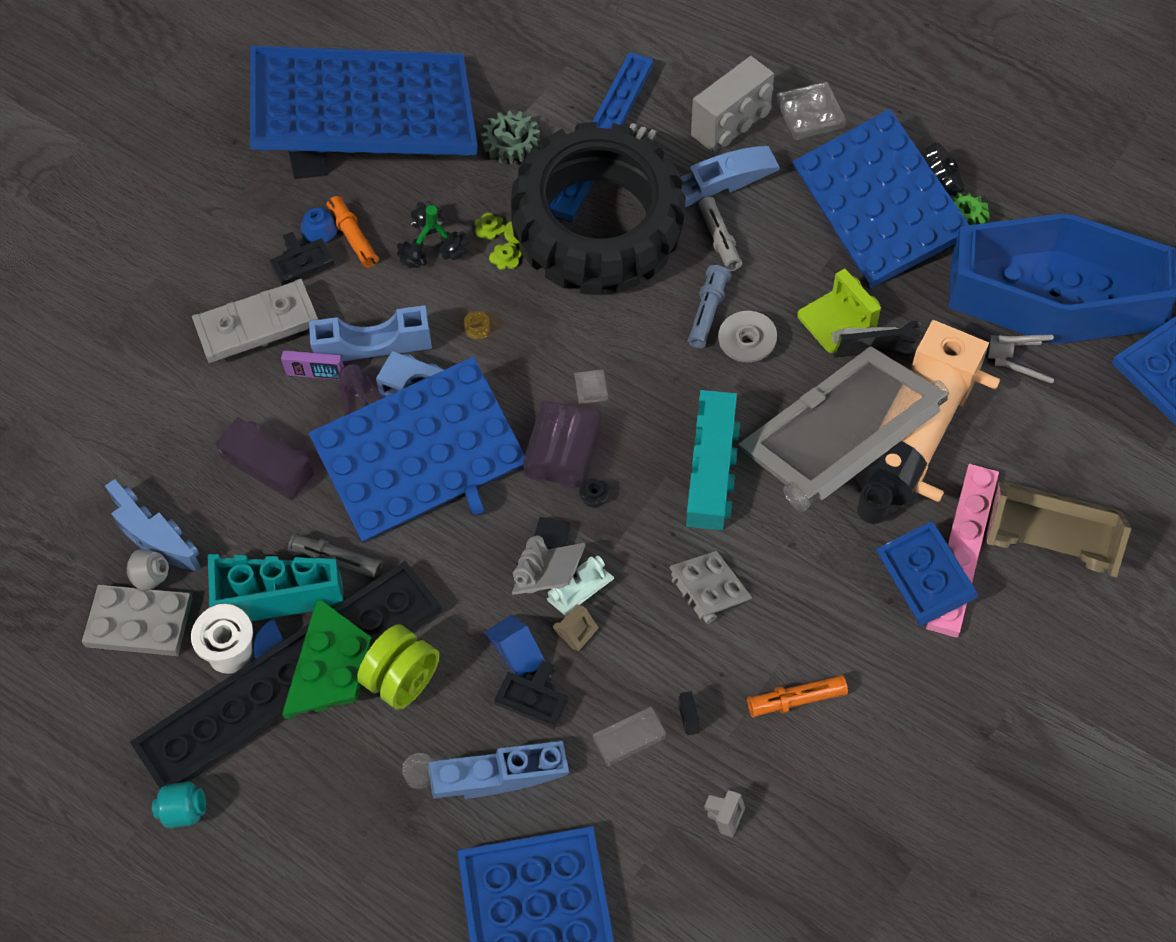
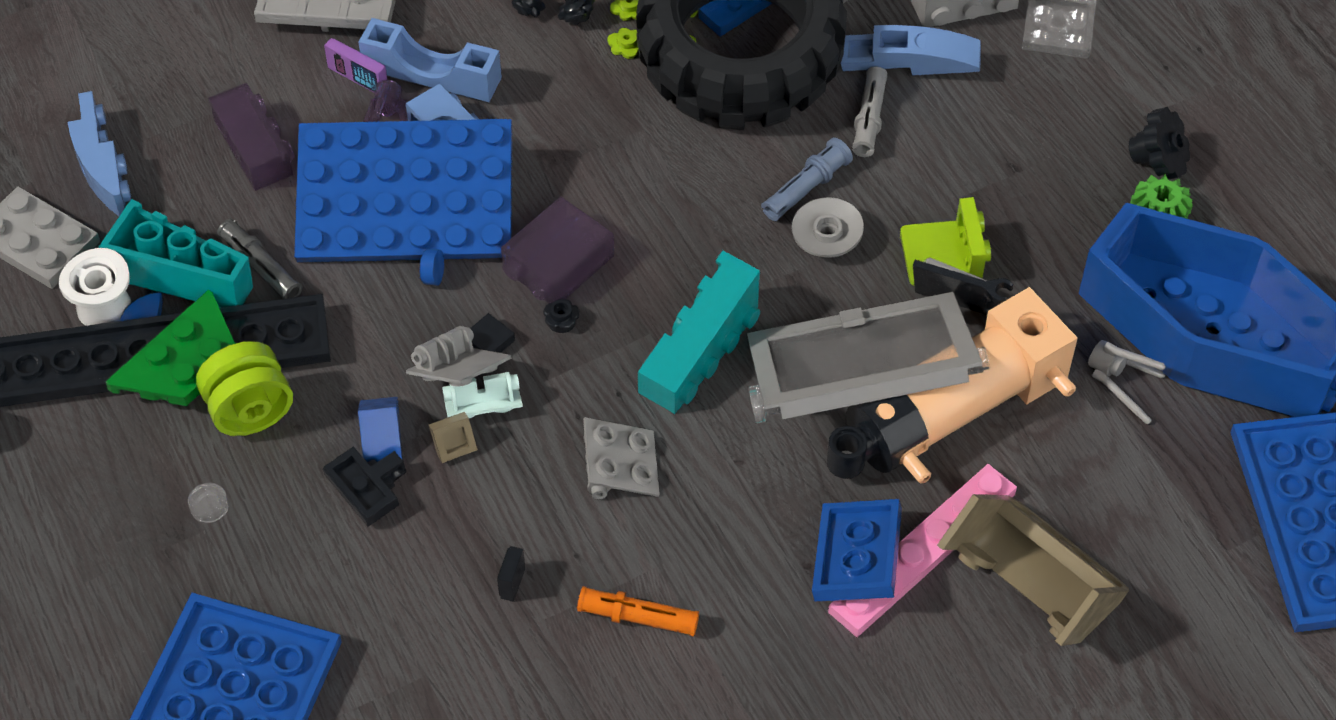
camera: 25 degrees right, 5 degrees down
(147, 569) = (69, 191): light grey cone -> none
(474, 318) = (552, 90): clear yellow bush -> none
(500, 772) = (281, 540): medium blue slope -> none
(590, 386) = (628, 209): clear plate -> none
(629, 736) = (438, 569): clear tile -> none
(726, 812) = (486, 688): light grey tile -> none
(881, 198) = (1072, 144): blue plate -> none

